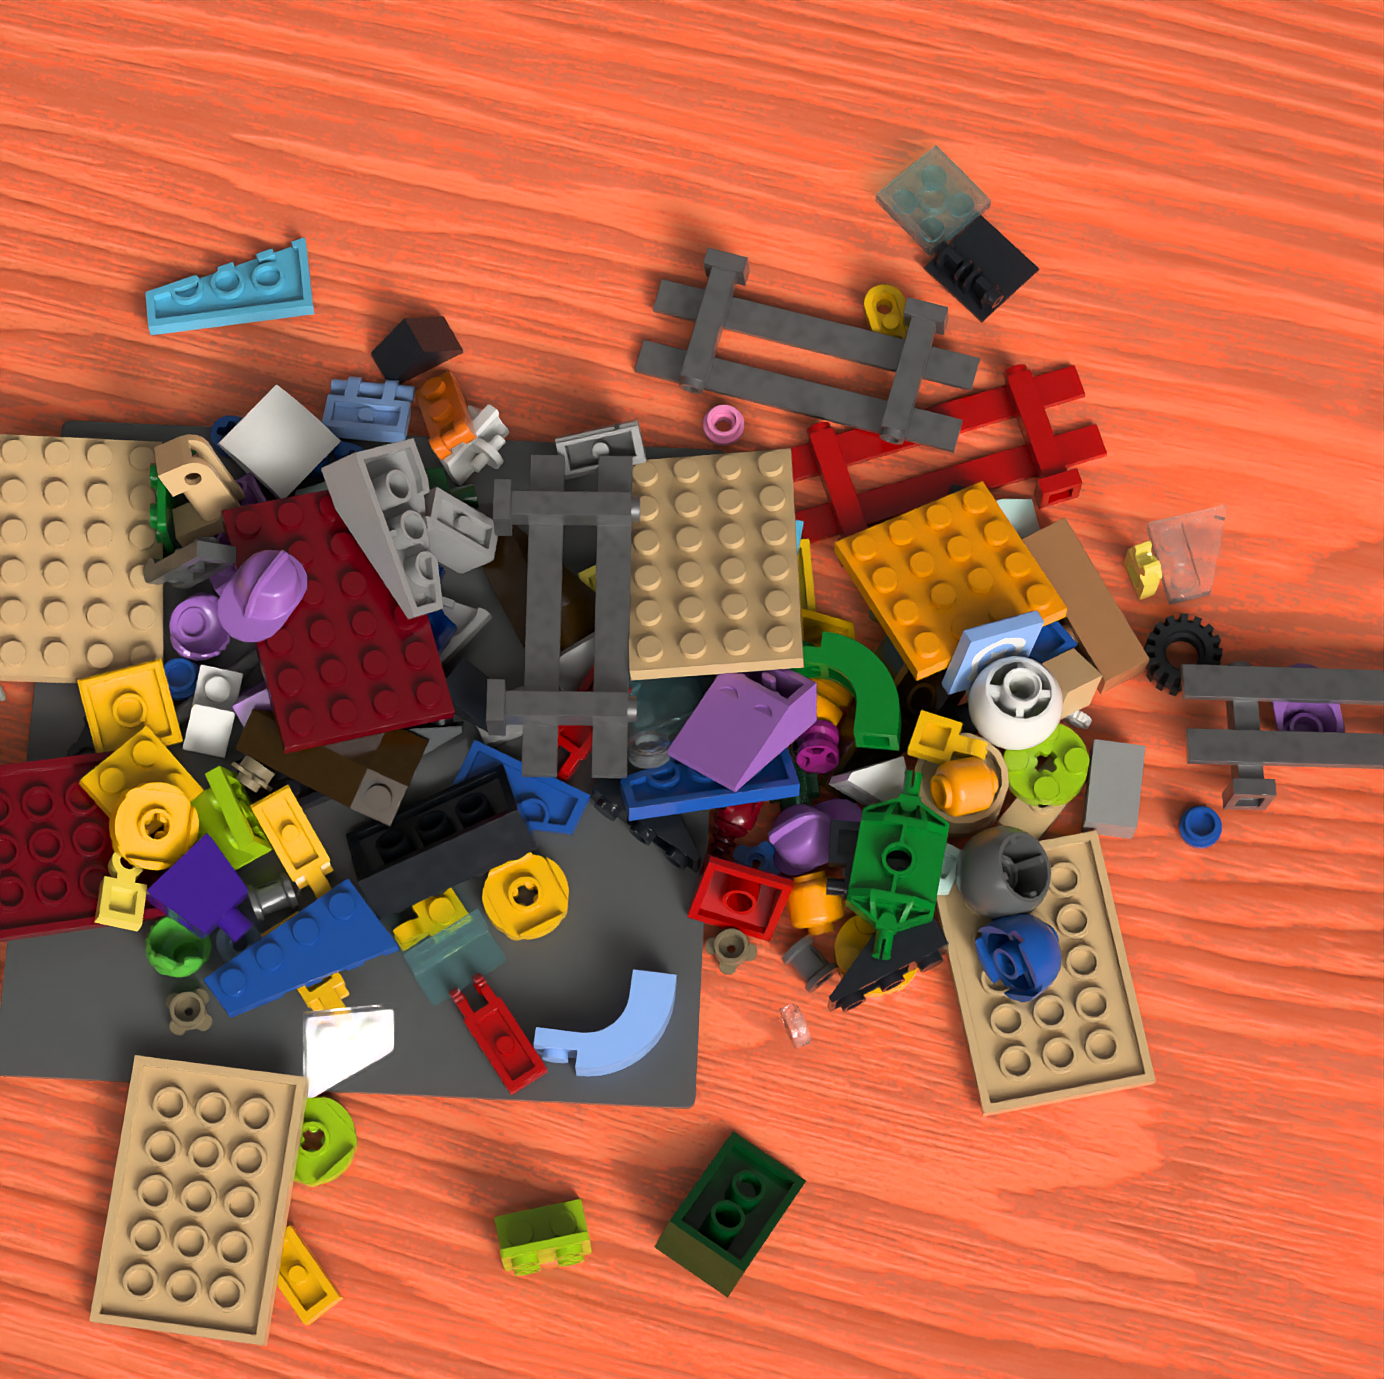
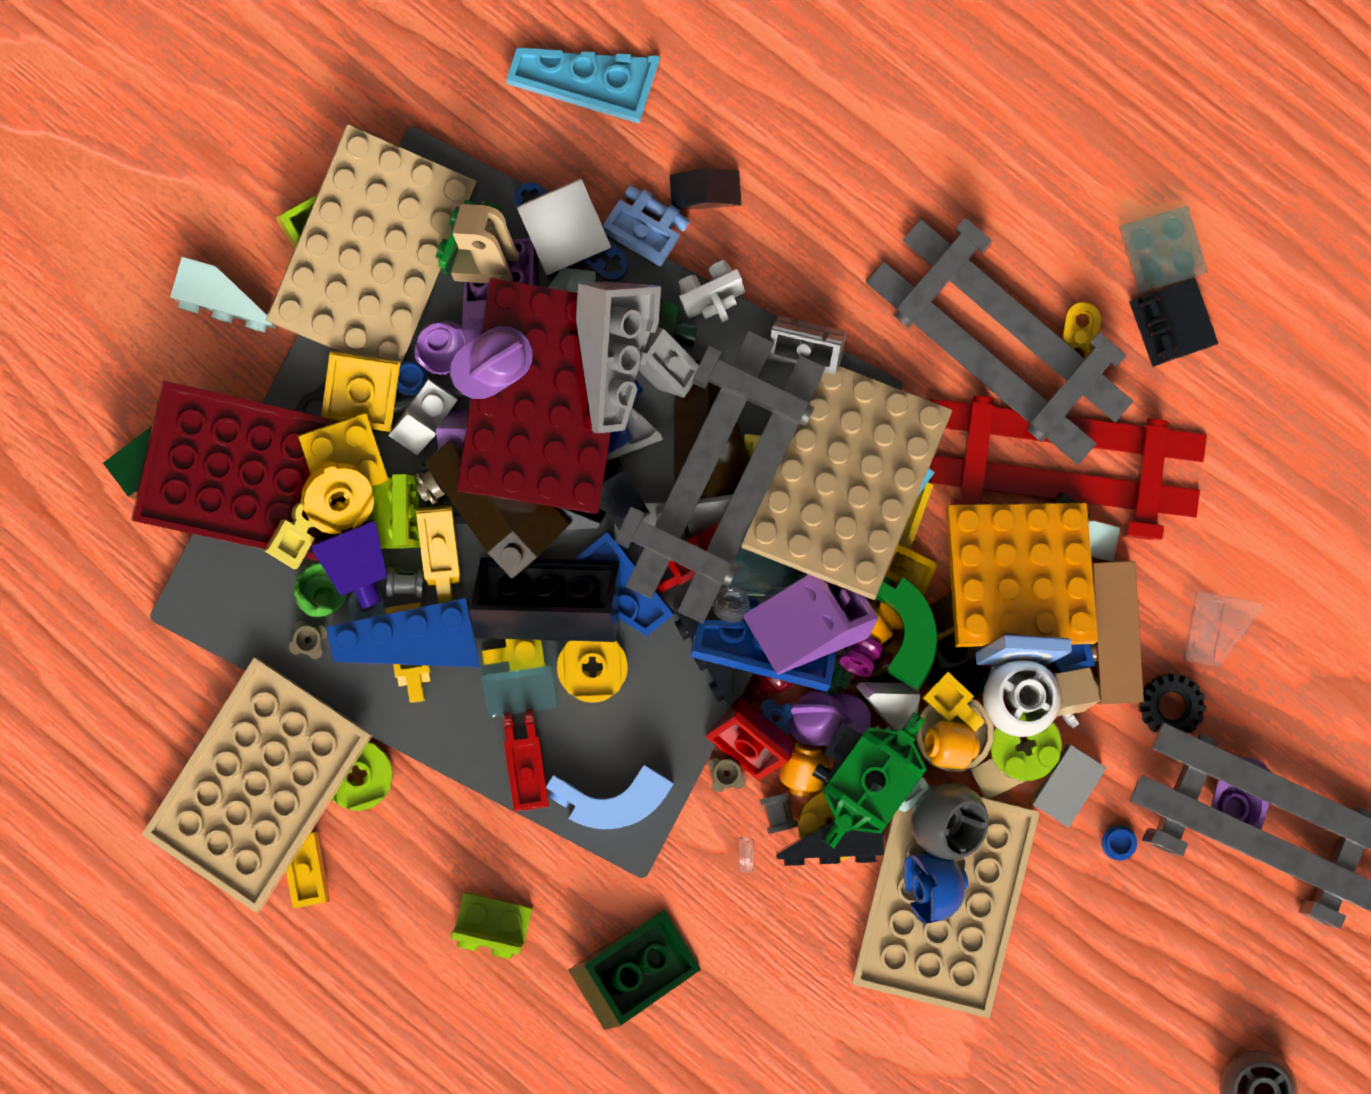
camera: 30 degrees right, 15 degrees up
(191, 564) = (451, 301): dark grey plate -> none
(344, 1042) = (410, 718): clear wing -> none
(445, 414) = (701, 261): orange plate -> none
(727, 414) = (920, 351): bright pink plate -> none
(1143, 569) = (1176, 627): light yellow plate -> none

